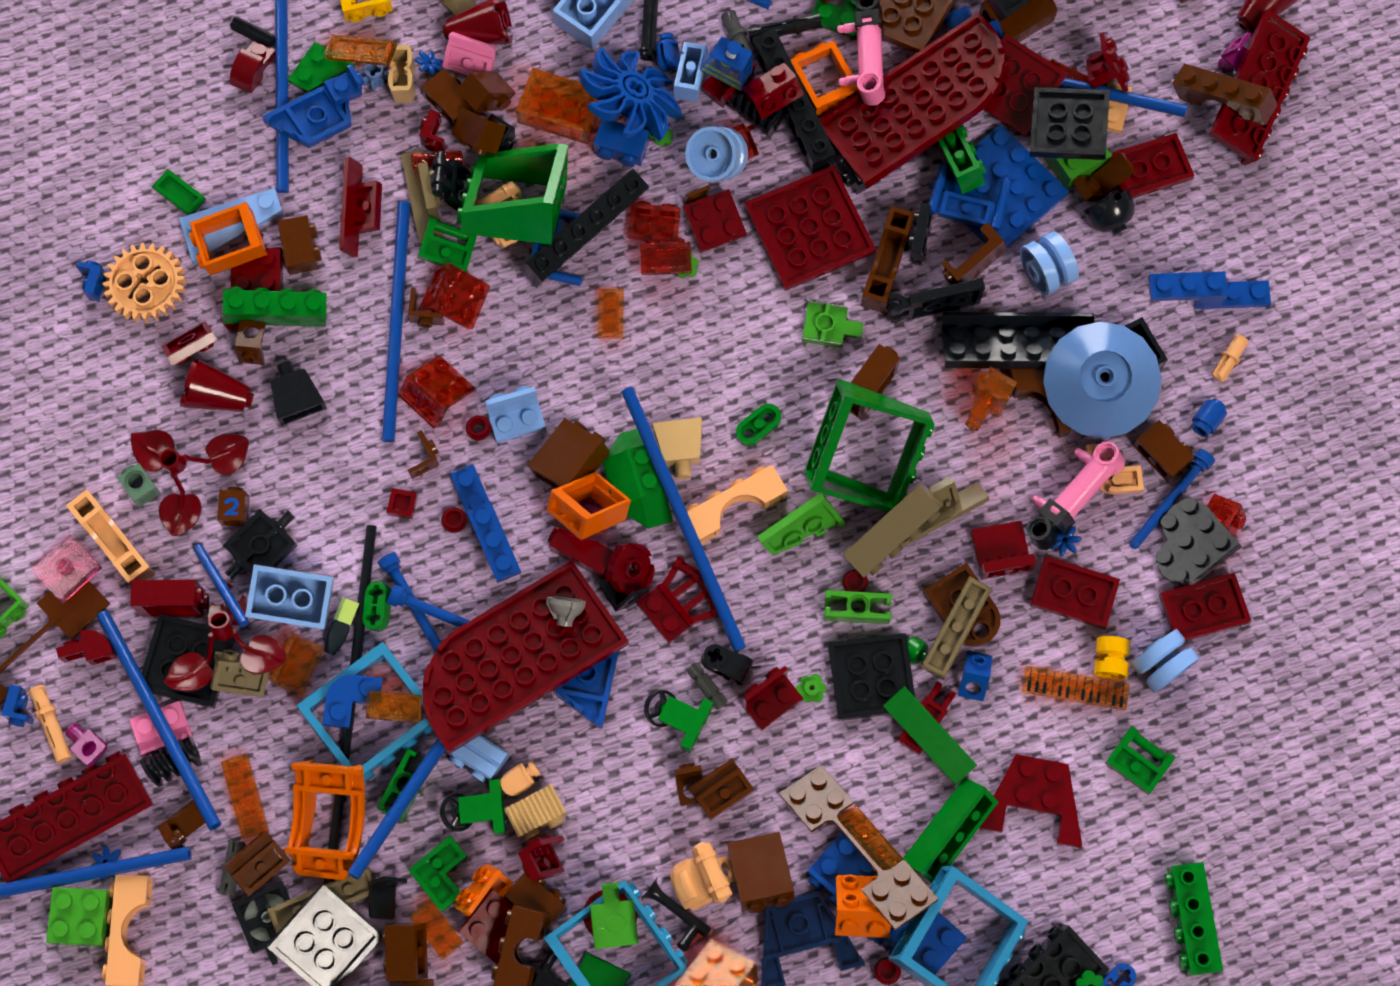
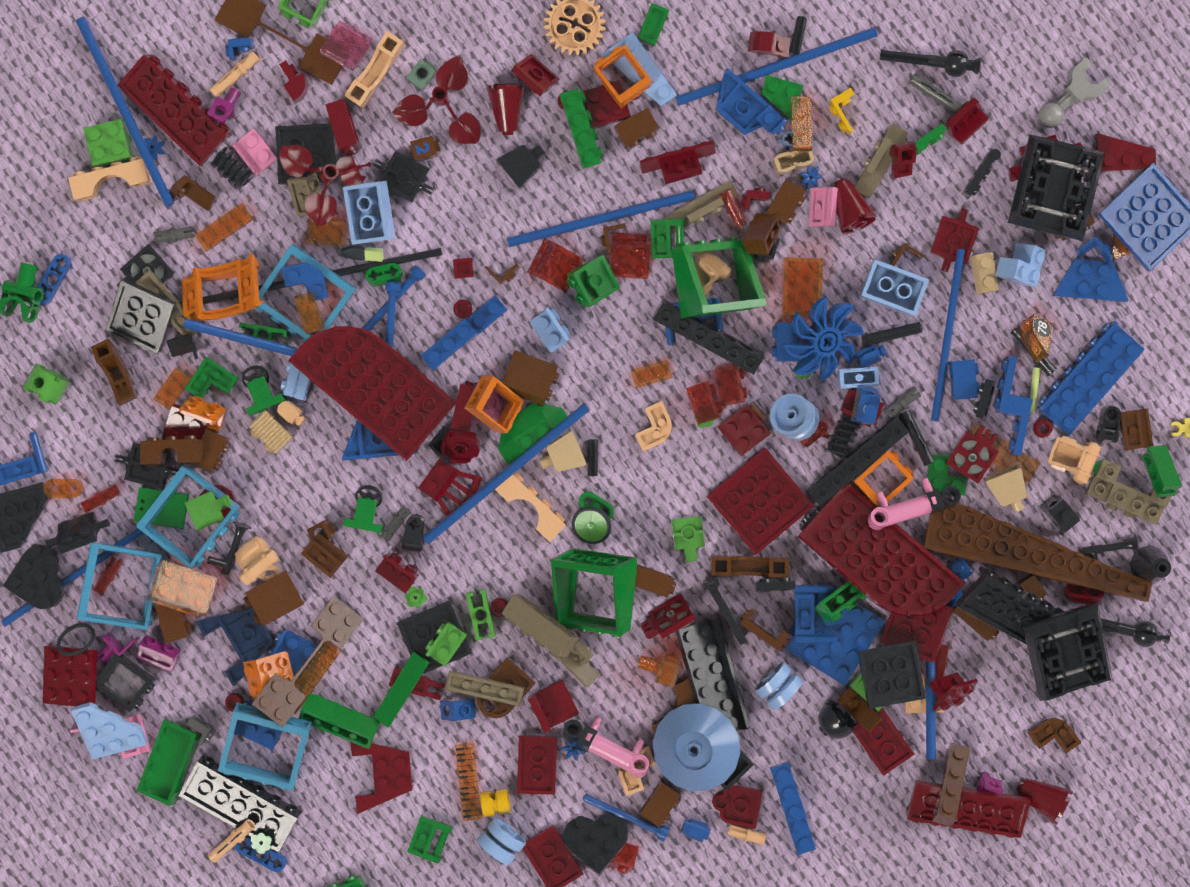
camera: 75 degrees right, 15 degrees up
(159, 721) = (196, 210): blue piece -> none
(221, 586) = (365, 159): blue bar -> none
(250, 349) = (543, 120): reddish brown bracket -> none
(256, 863) = (180, 251): reddish brown plate -> none
(405, 952) = (149, 373): reddish brown brick -> none
(455, 182) = (716, 230): black plate -> none
(471, 348) = (592, 281): none -> green plate
(478, 420) = (530, 304): dark red plate -> none
(486, 91) = (795, 230): reddish brown brick -> none
(541, 859) = (238, 446): dark red bracket -> none
(565, 609) = (415, 410): light grey piece -> none
(679, 319) = (660, 427): none -> light nougat plate
(691, 411) = (592, 466): none -> black axle
(773, 90) = (855, 445): dark red bracket -> none
(780, 436) = (591, 525): none -> bright green wheel
(805, 521) = (533, 562): bright green wing -> none
(884, 660) = (446, 644): none -> bright green bracket
(917, 650) = (464, 663): green piece -> none
(926, 372) = (667, 618): none -> dark red piece
(1190, 357) = (739, 805): none -> dark red plate

